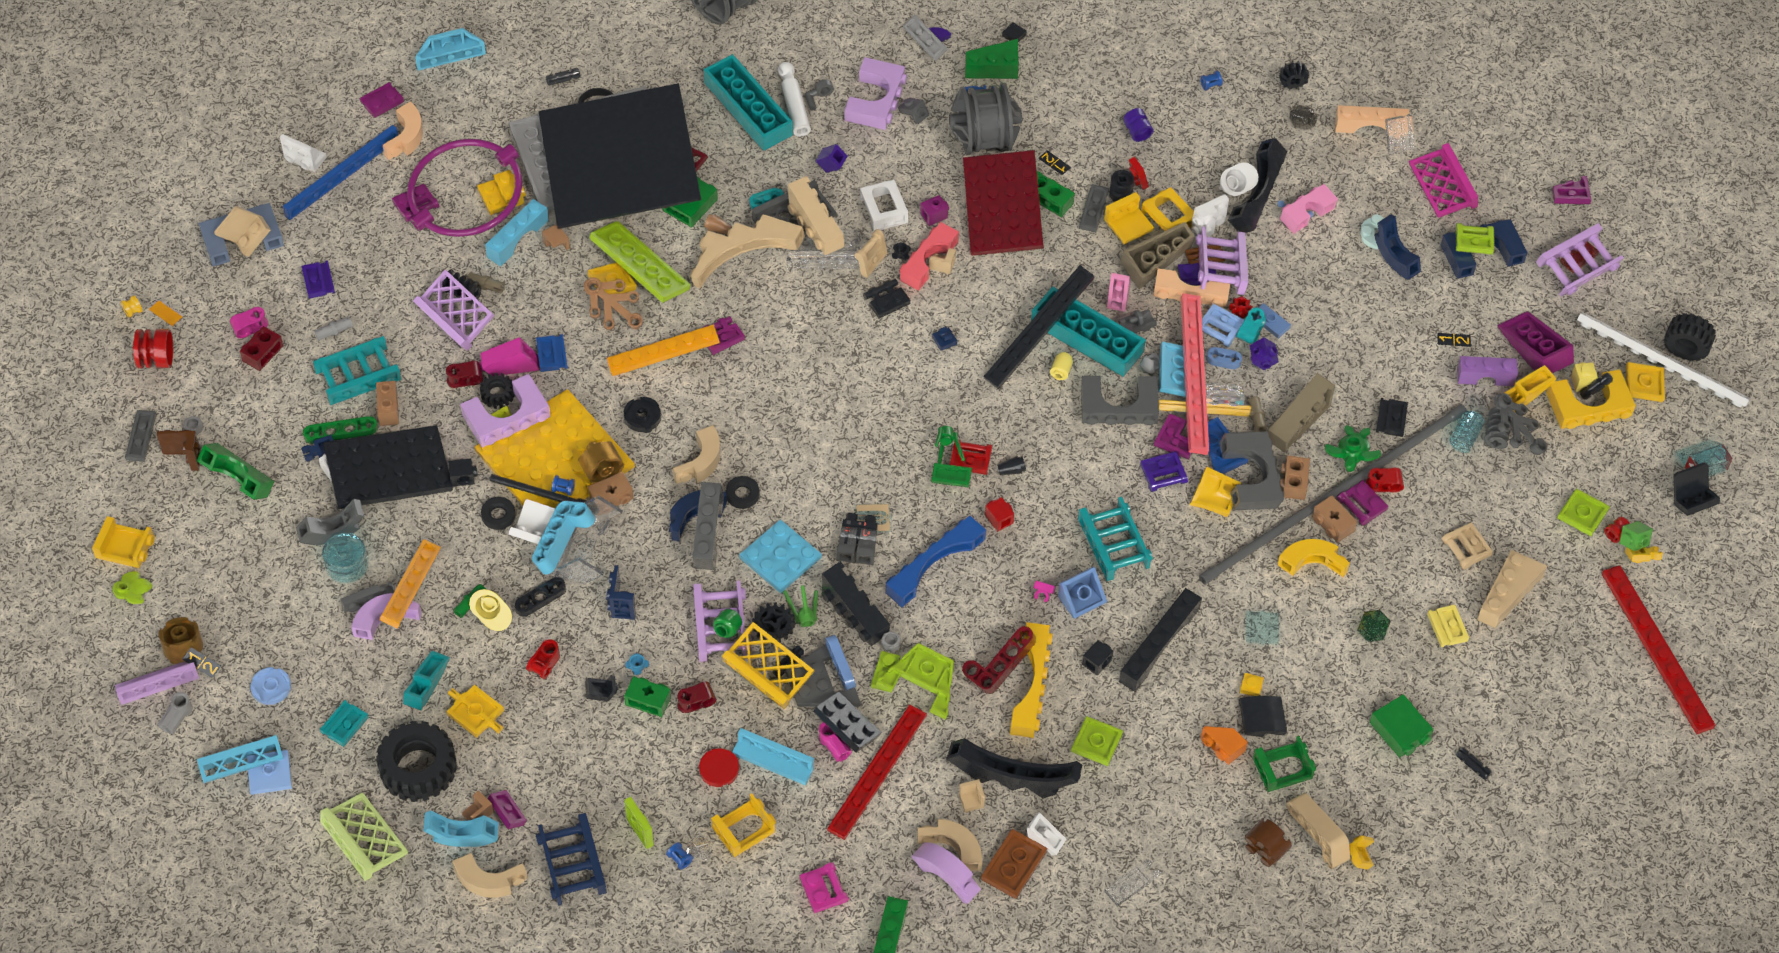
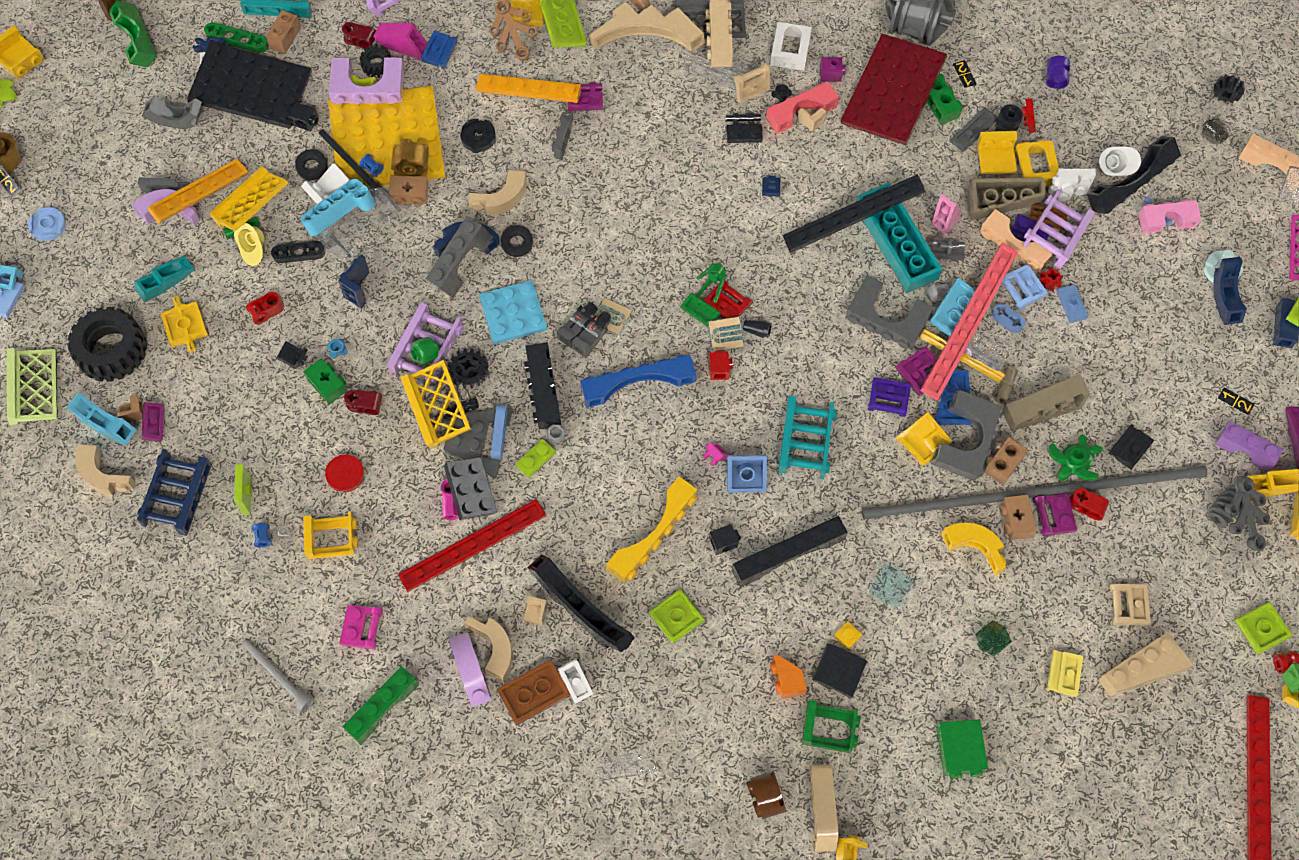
camera: 30 degrees right, 10 degrees up
(344, 723) = (78, 283): teal plate -> none
(345, 558) = (167, 145): clear light blue wheel -> none
(455, 567) = (241, 199): none -> yellow fence
(722, 376) = (562, 135): none -> dark grey hinge
(774, 756) = (392, 488): medium azure fence -> none
(806, 616) = (498, 375): bright green plant -> none
(926, 670) = (569, 476): lime wing -> none
(987, 484) = (726, 334): none -> piece
(1002, 657) = (637, 498): dark red beam -> none
(1061, 366) = (856, 258): light yellow brick -> none
(1211, 80) = (1145, 61): blue bush -> none
(1251, 329) = (1049, 302): teal piece -> none
(1264, 353) = (1045, 331): dark purple brick -> none
(1466, 431) = (1194, 494): clear light blue piece -> none
(1474, 763) = (1010, 819): black axle -> none

